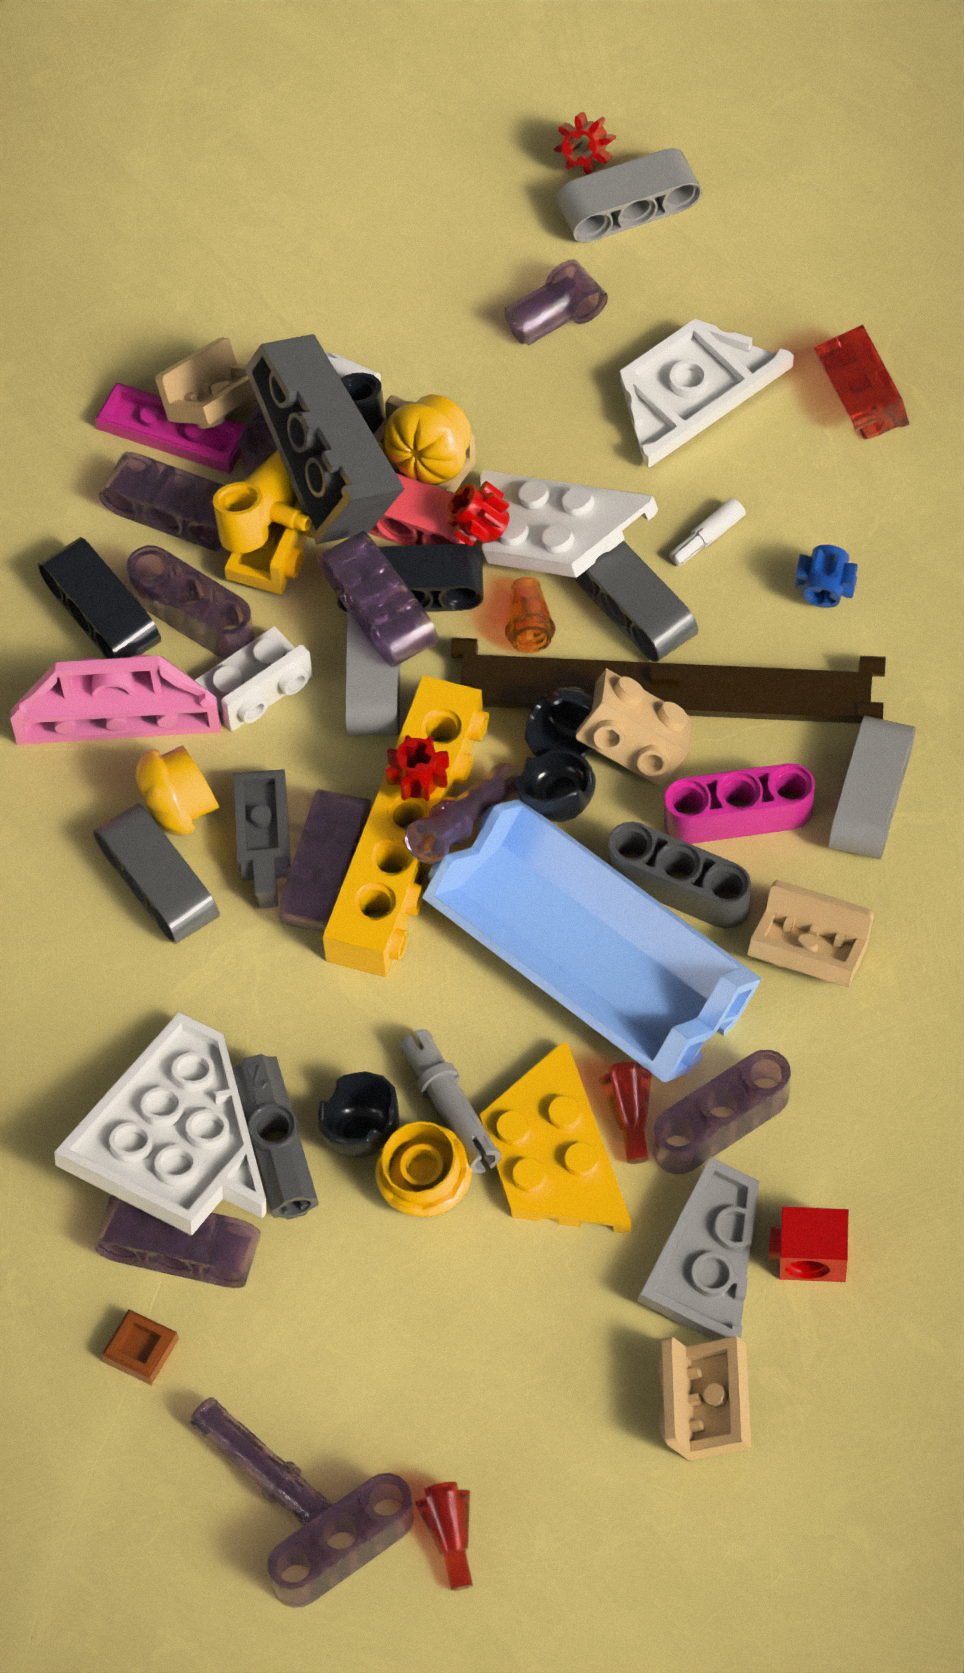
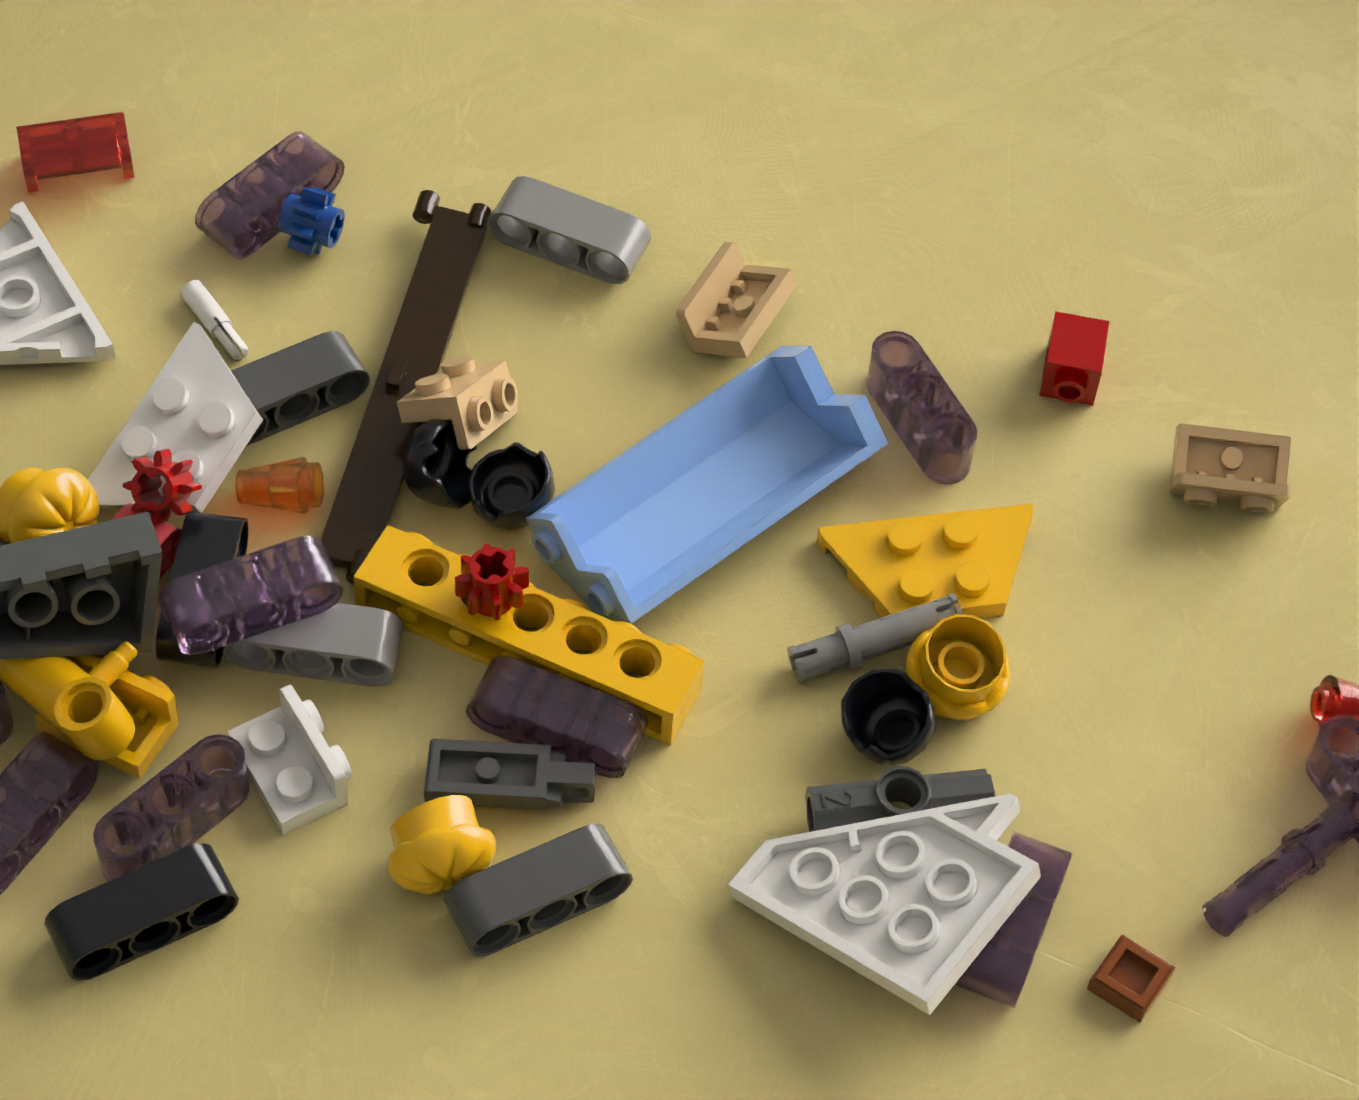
camera: 90 degrees left, 5 degrees down
(113, 702) = (290, 904): bright pink wedge -> none
(452, 820) = (556, 566): pin -> none
(628, 1095) = (891, 484): clear red cone -> none
(690, 895) = (641, 396): dark grey beam -> none
(707, 1255) = (1081, 454): light grey wing -> none
(756, 786) = (566, 338): dark pink beam -> none
(884, 551) = (248, 206): none -> beam

